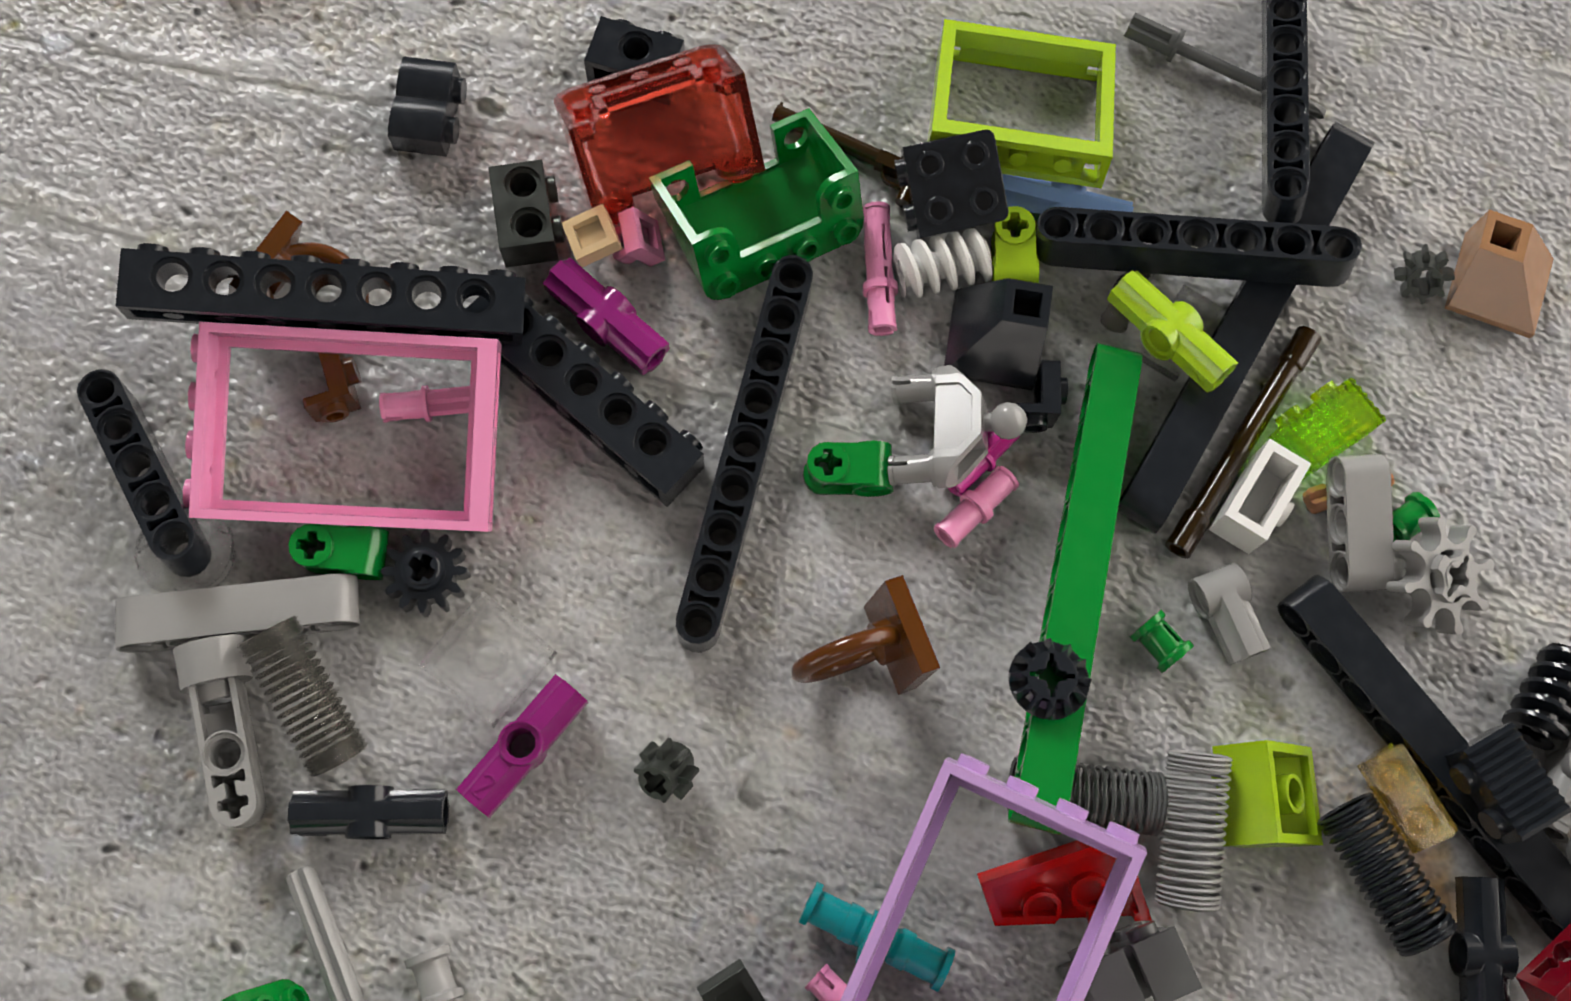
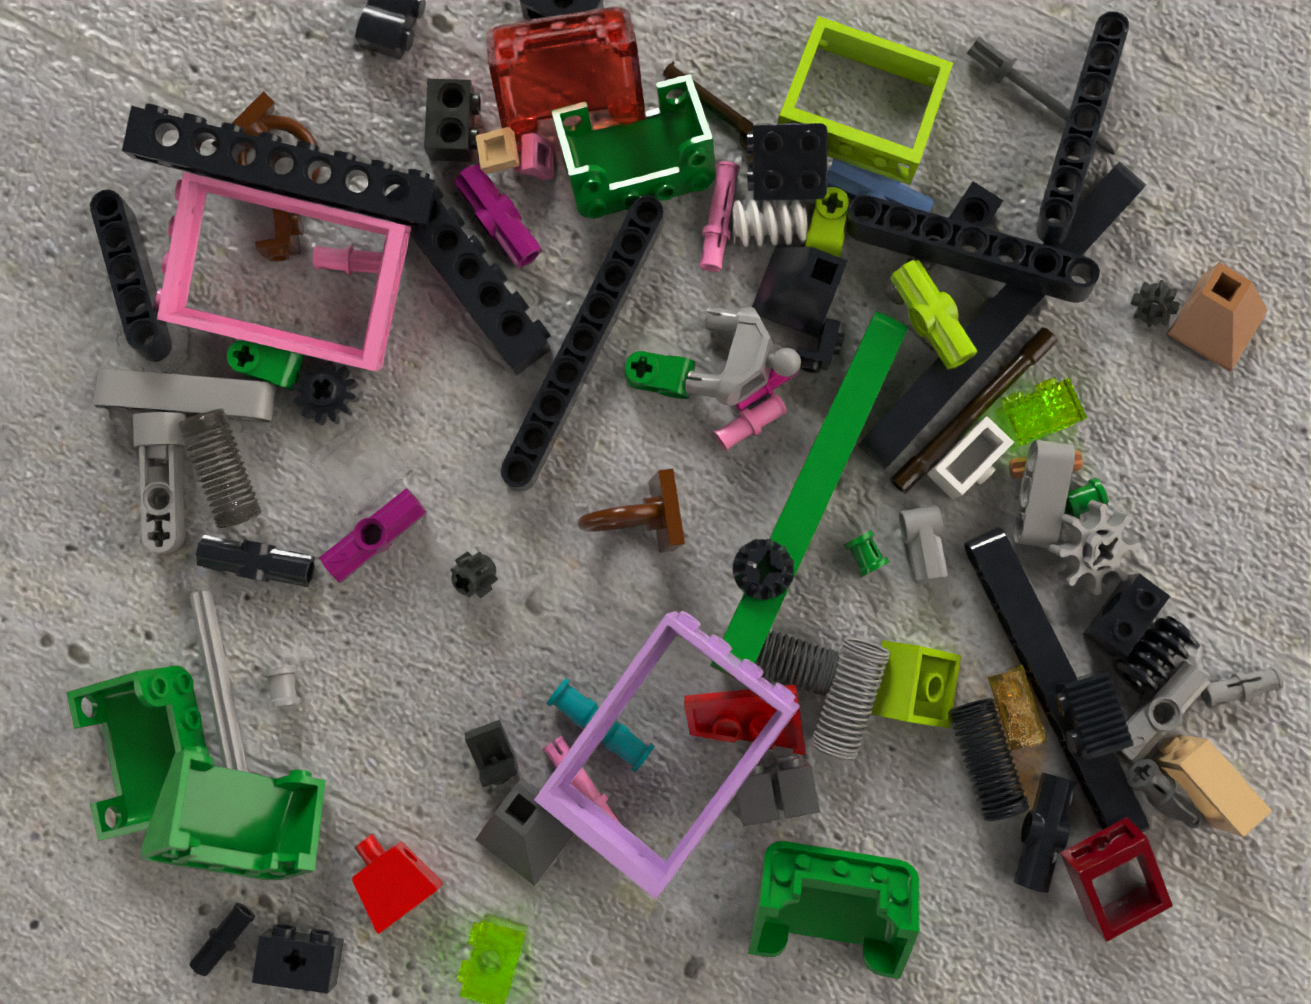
camera: 20 degrees right, 10 degrees up
(1186, 196) = (980, 202): none -> black brick
(1502, 653) = (1126, 615): none -> black brick

